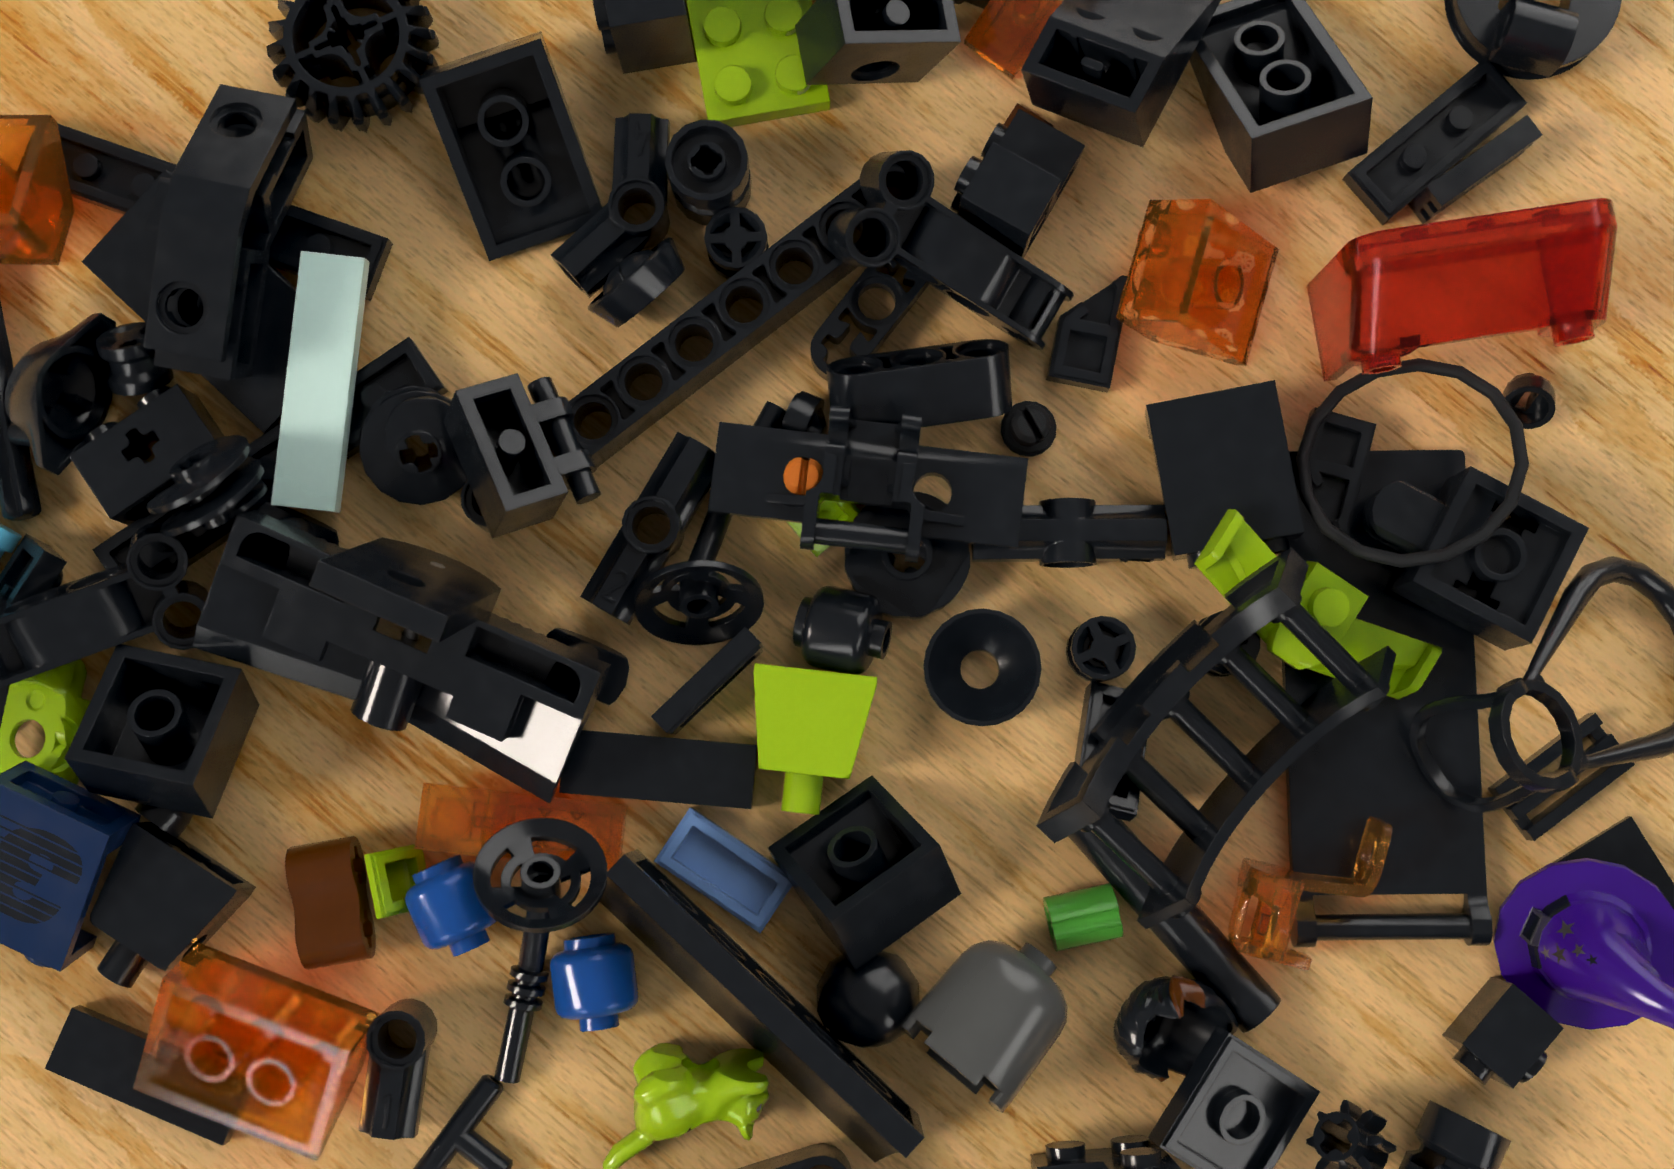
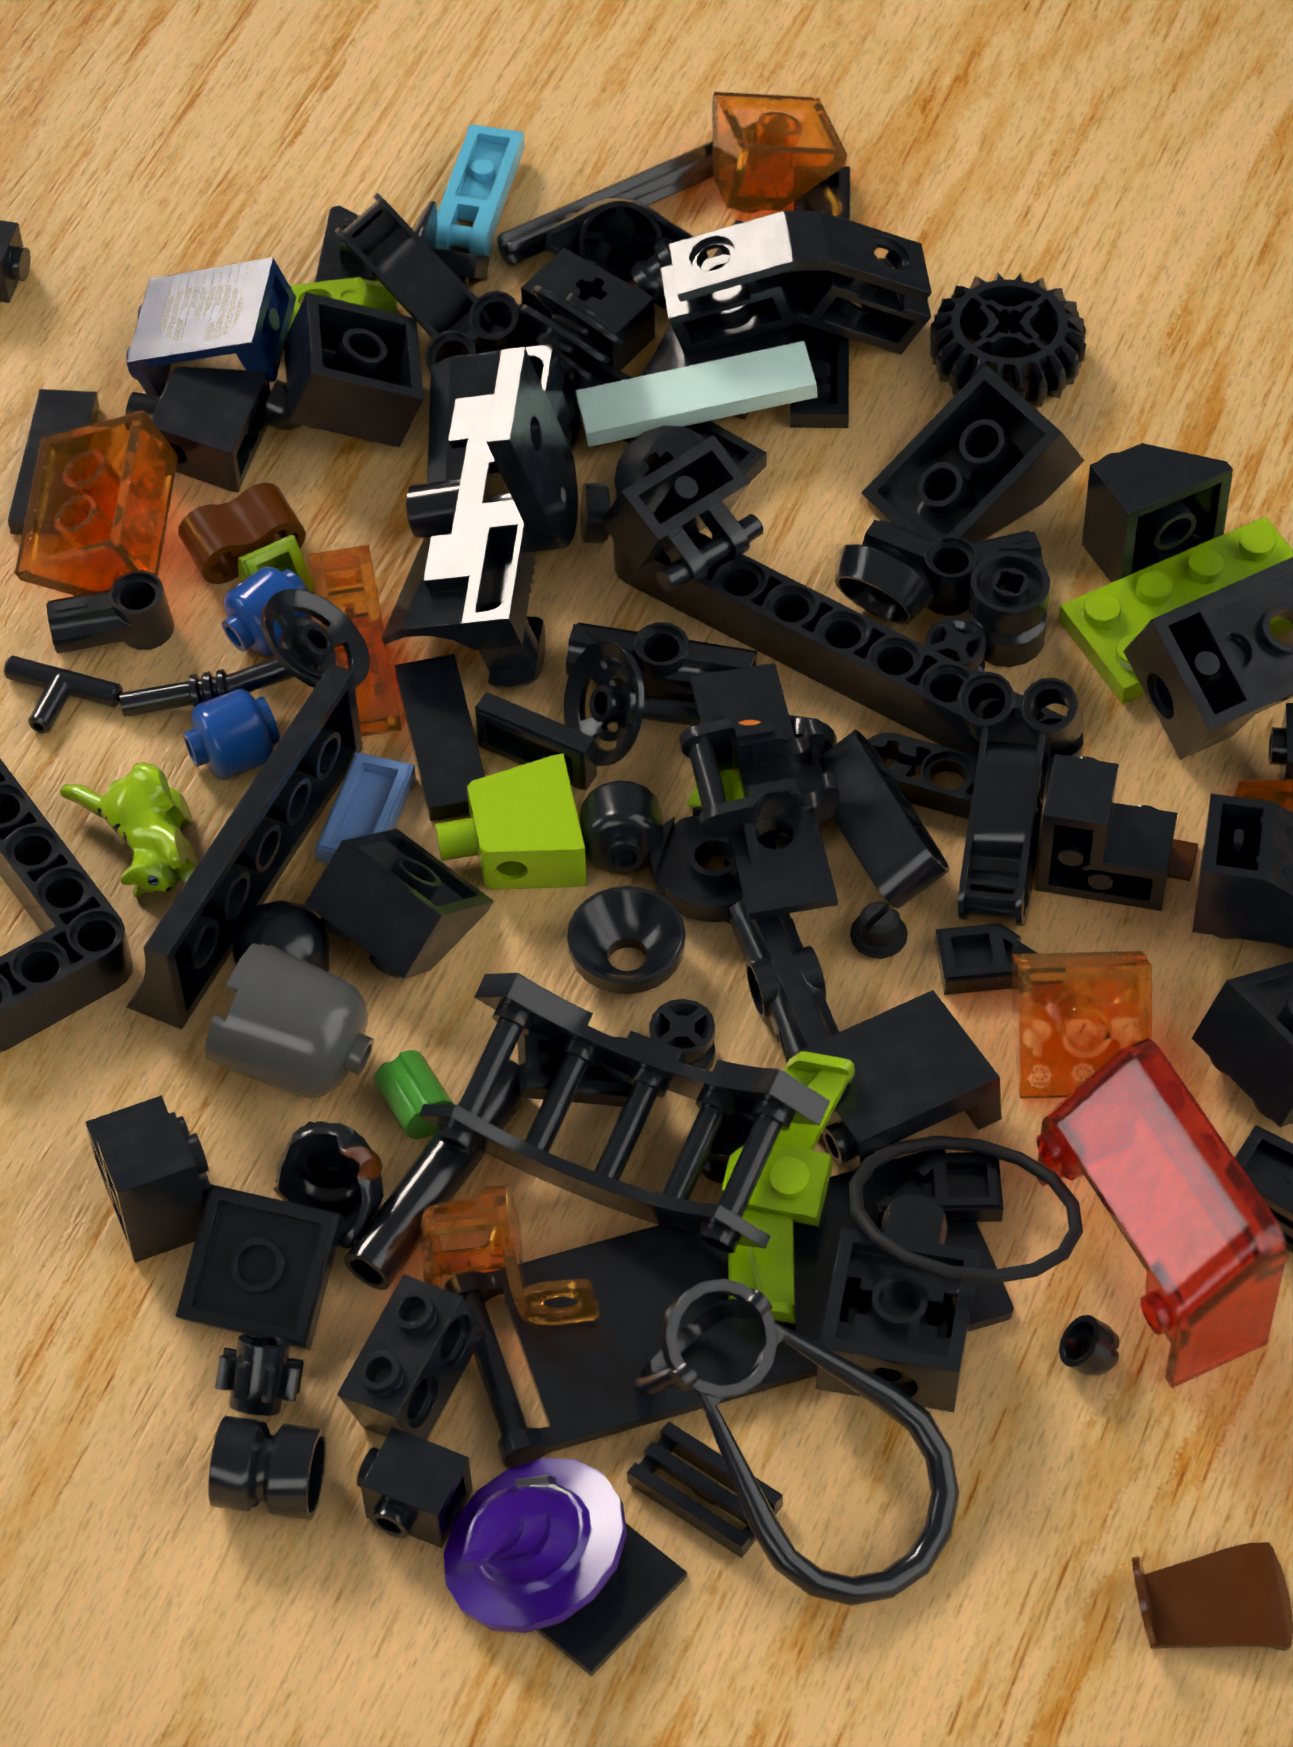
camera: 75 degrees right, 30 degrees down
(433, 533) = (594, 507): none -> black tile
(1392, 1006) = (412, 1359): none -> black brick

